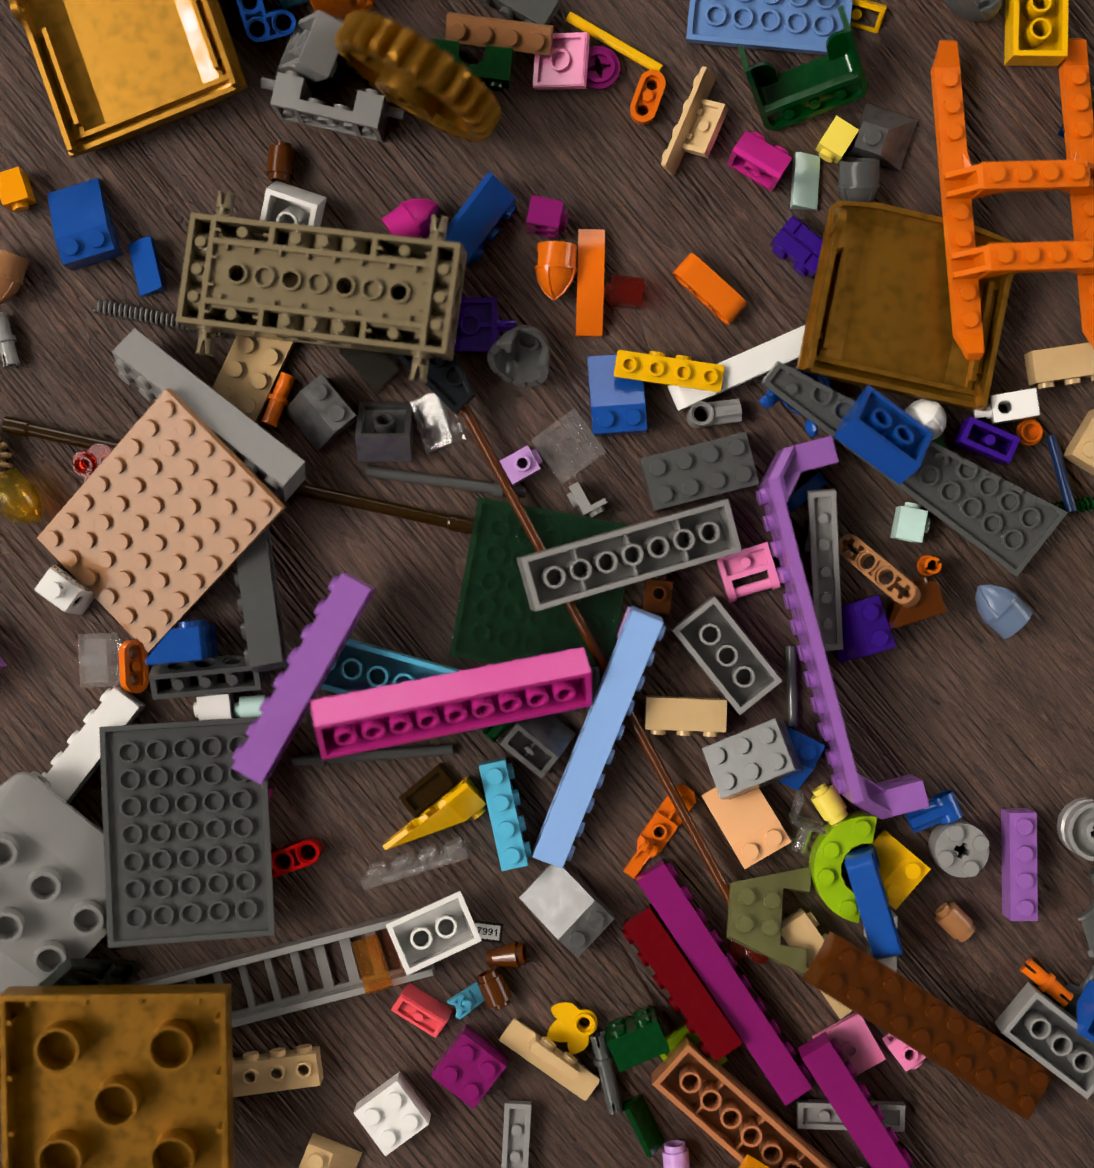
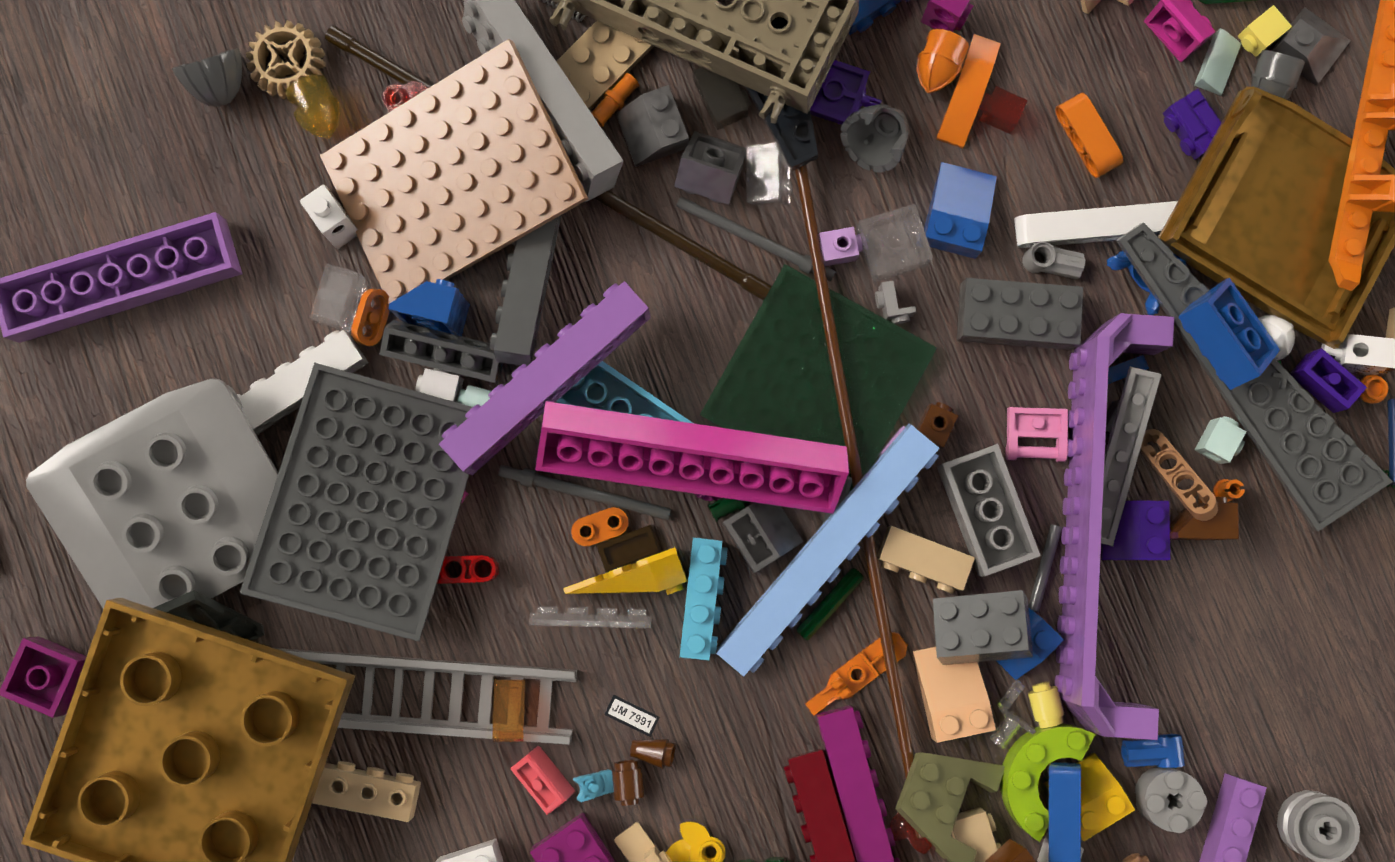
camera: 15 degrees right, 5 degrees down
(395, 780) = (599, 527): none -> orange plate
(433, 932) = (585, 697): white slope -> none
(567, 908) = (733, 722): slope -> none
(616, 779) = (830, 604): none -> dark green axle
(629, 554) = (922, 370): light grey brick -> none
(668, 371) = (1023, 200): yellow bracket -> none
(1002, 609) = (1291, 560): sand blue helmet -> none

